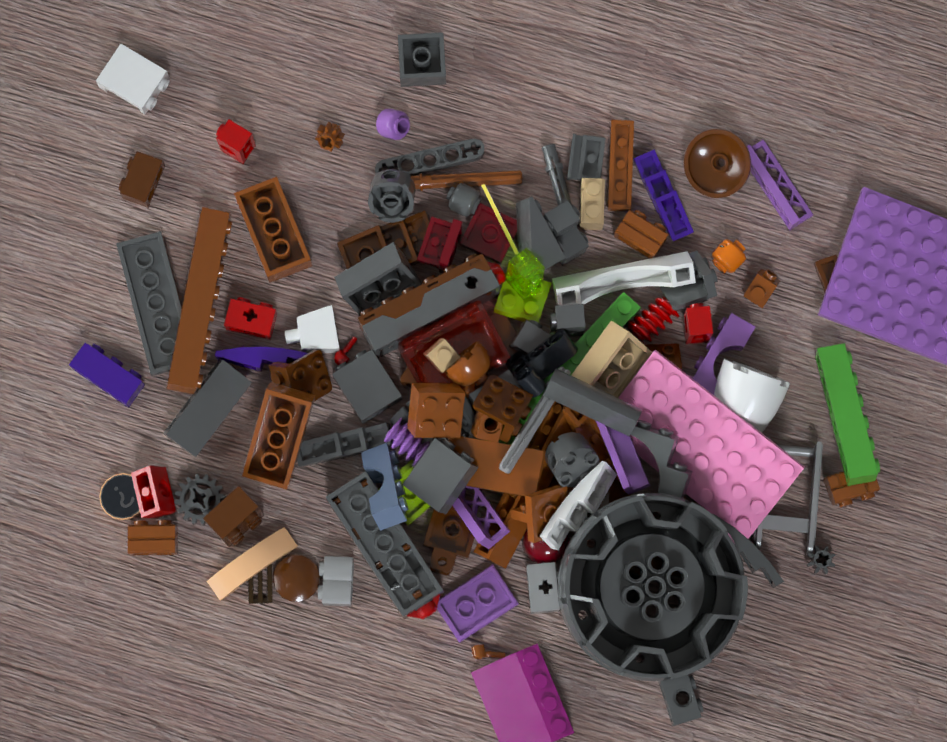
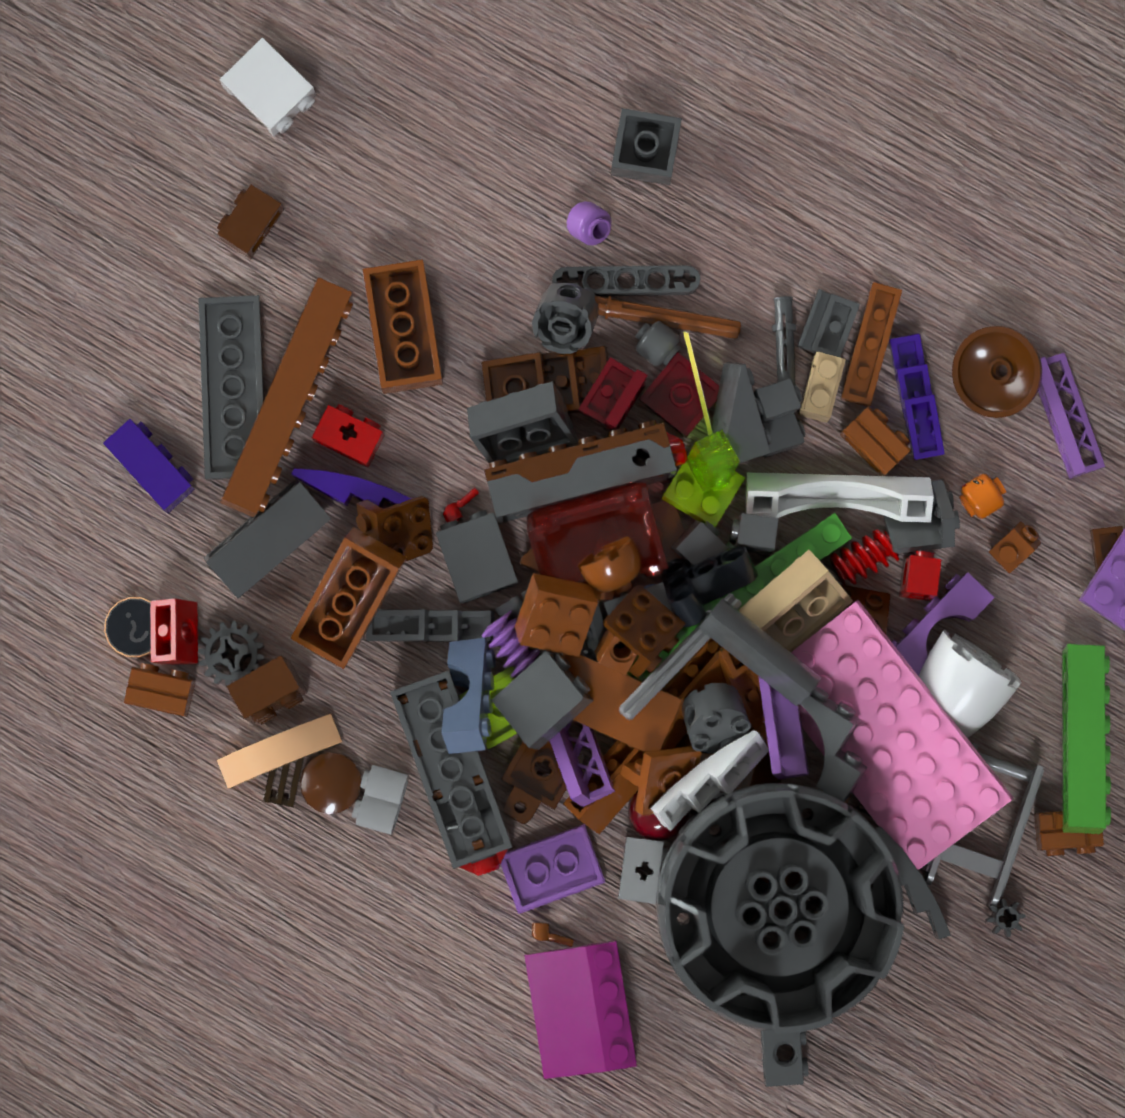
camera: 15 degrees right, 5 degrees up
(235, 141) = (380, 200): red brick -> none
(315, 331) = (427, 472): white torso -> none
(330, 136) = (504, 221): dark orange gear -> none
(441, 355) = (580, 544): tan brick -> none

